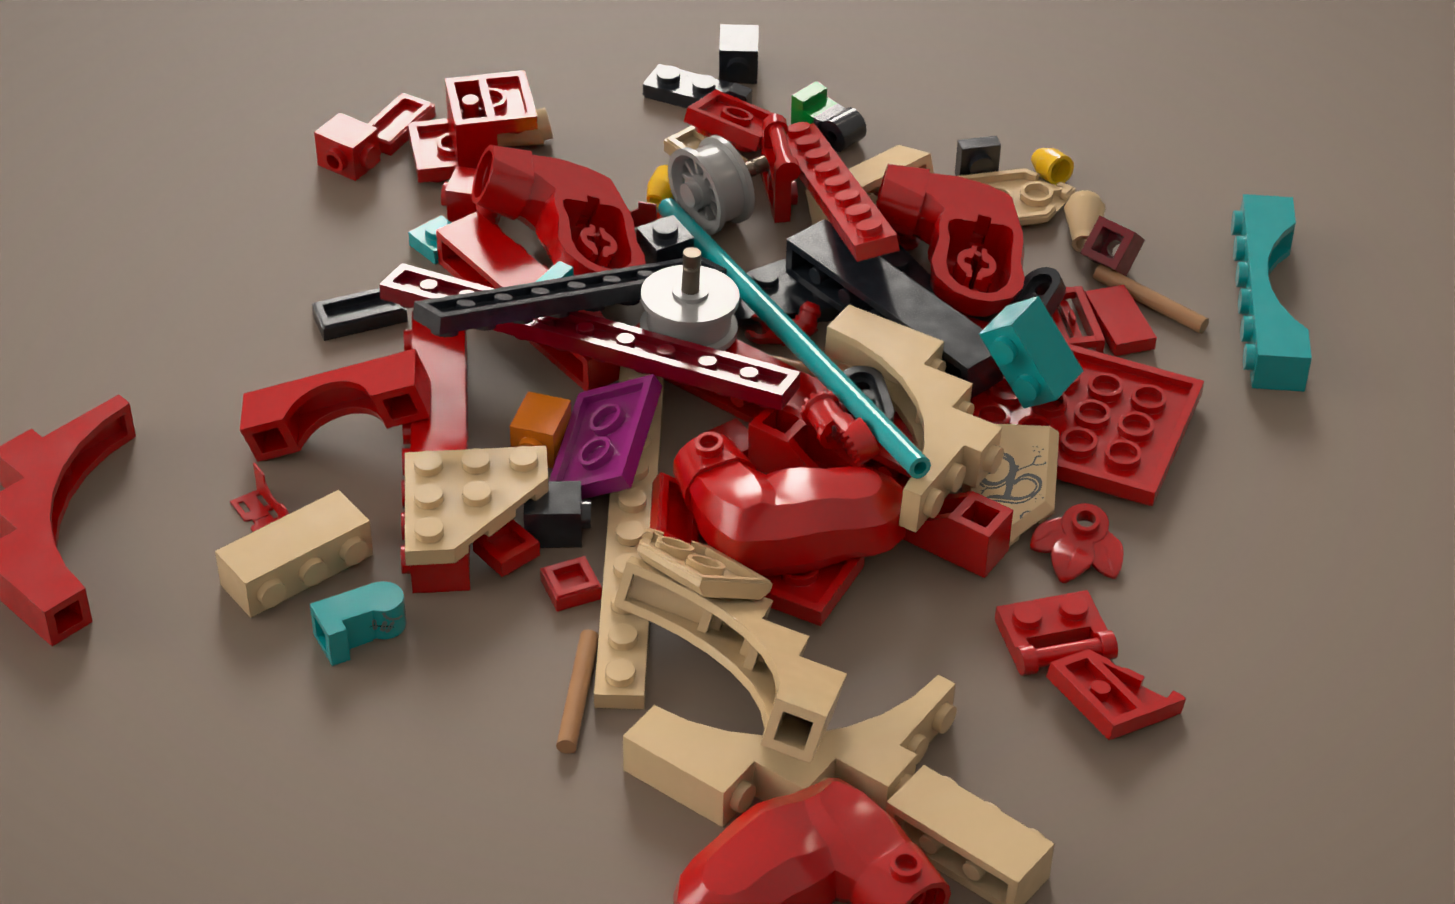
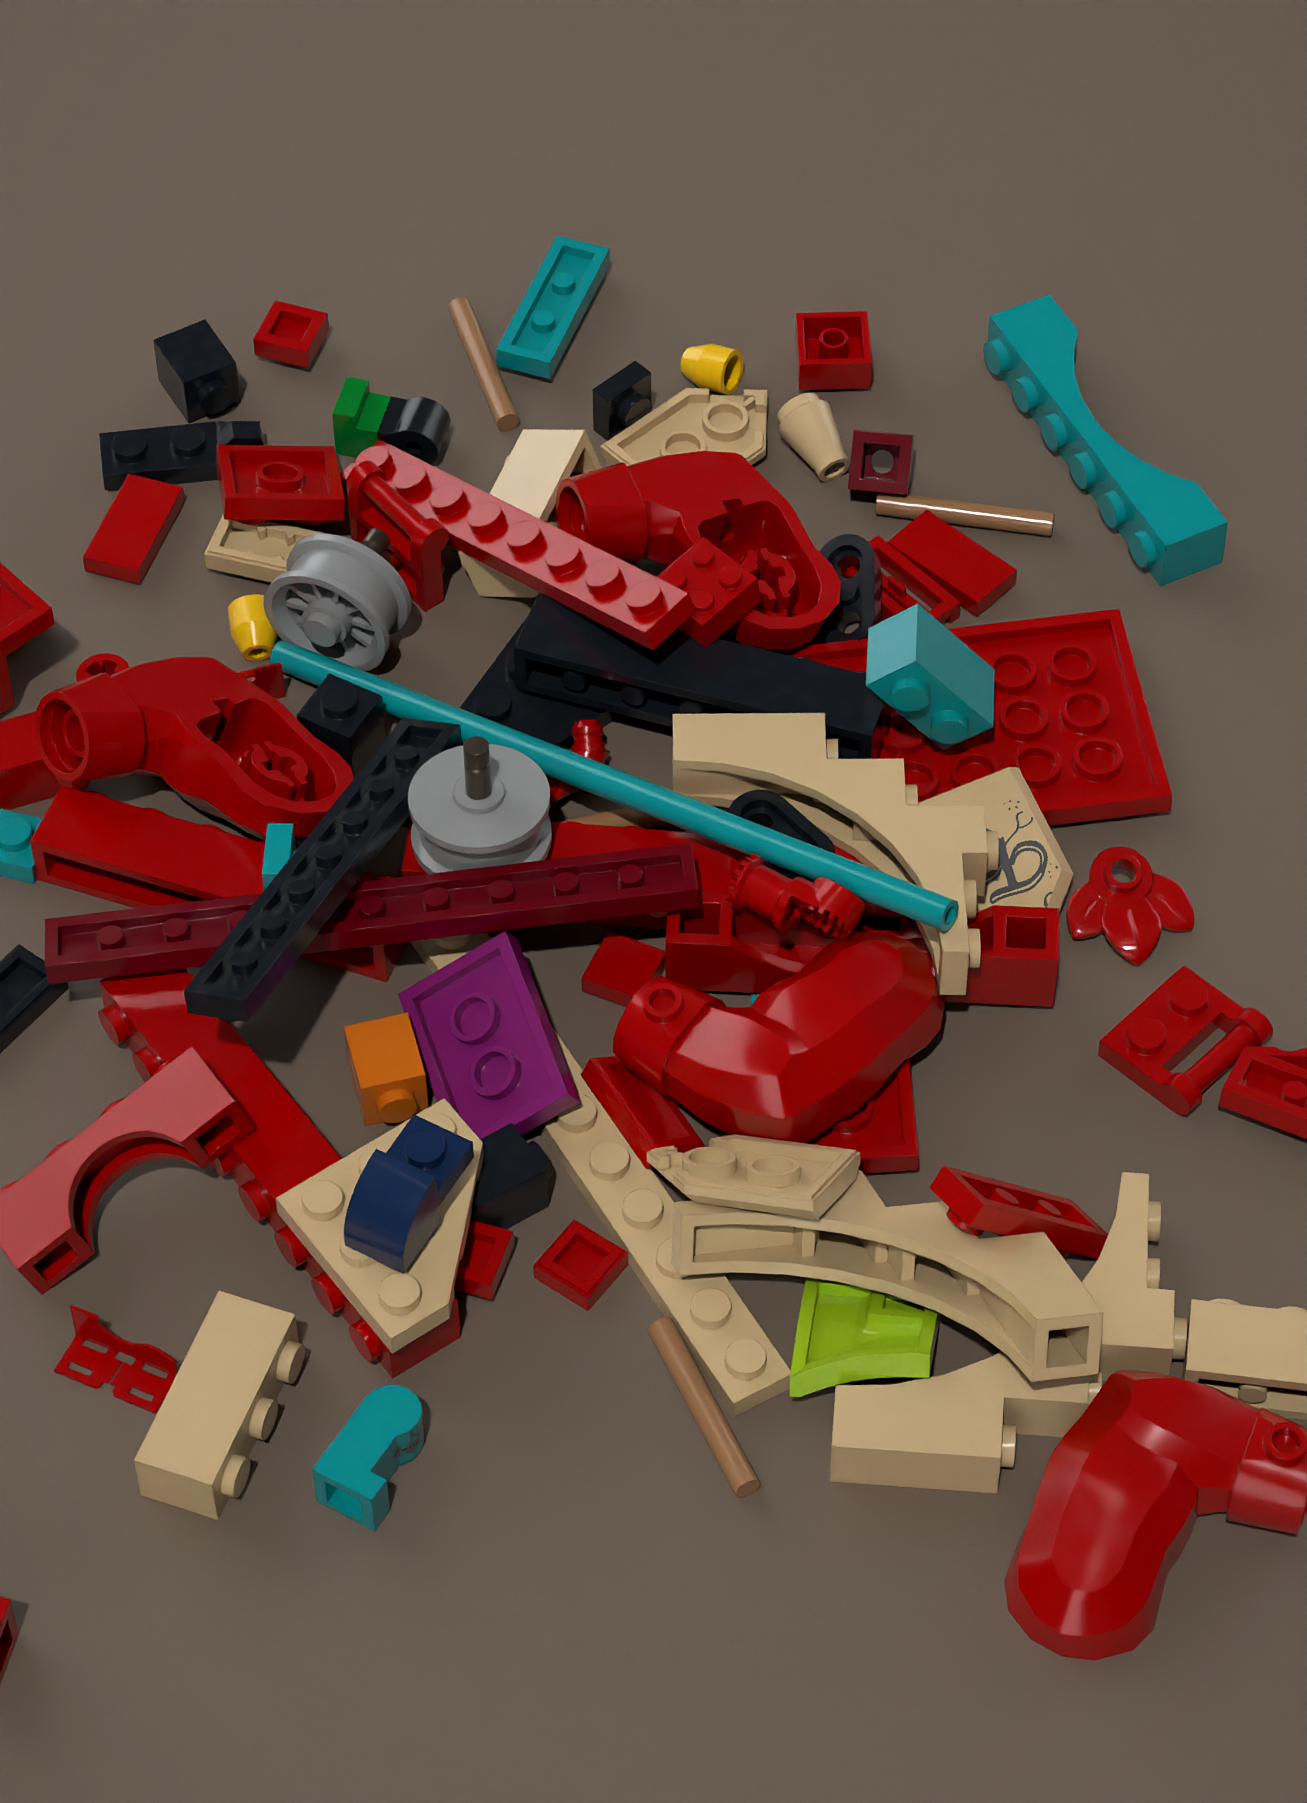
camera: 30 degrees left, 10 degrees up
(458, 471) = (401, 1193): none -> dark blue brick
(639, 117) = (133, 529): none -> red tile
(697, 688) = (858, 1336): none -> lime plate
(810, 57) = (291, 334): none -> red plate
(816, 637) = (1010, 1209): none -> red plate
(914, 111) = (483, 364): none -> medium nougat bar
(923, 251) = (717, 587): none -> red piece
(977, 99) = (553, 307): none -> teal plate
(1133, 182) = (833, 350): none -> red piece

